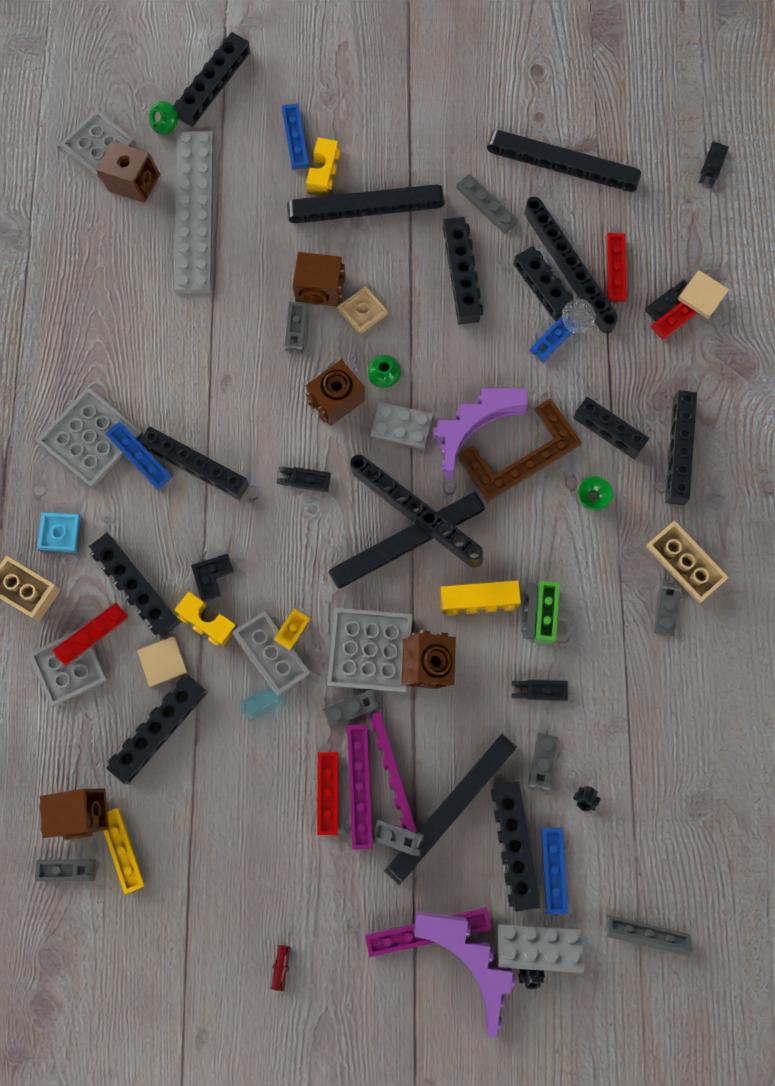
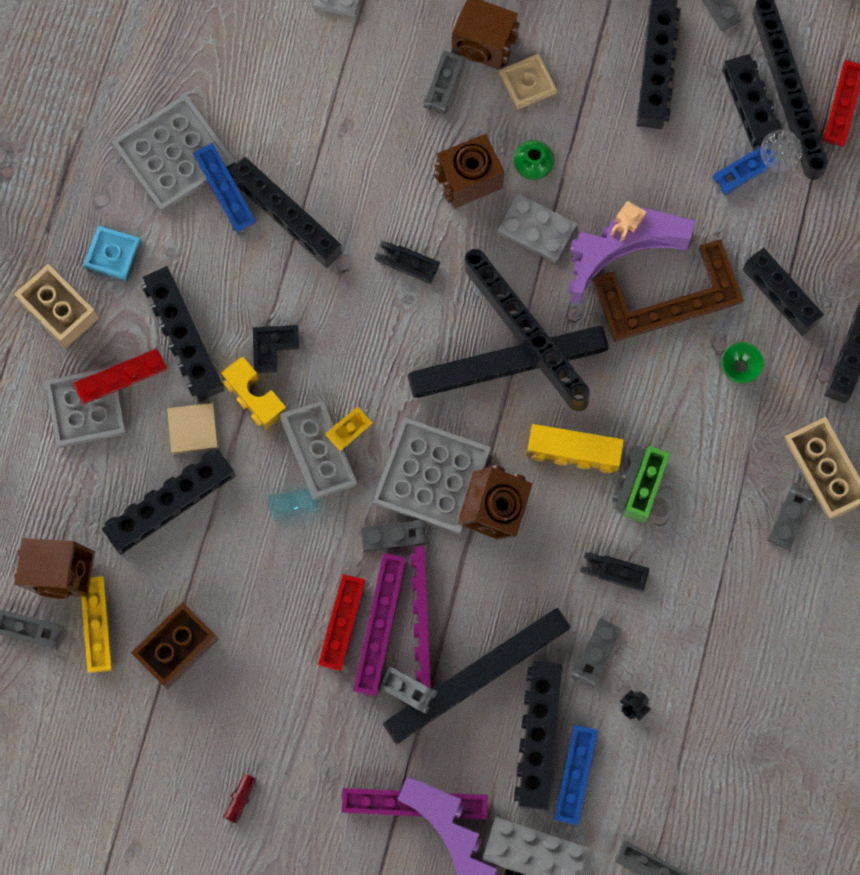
camera: 15 degrees right, 0 degrees up
(192, 852) = (174, 645): none -> reddish brown brick
(473, 400) = (628, 218): none -> light nougat plate

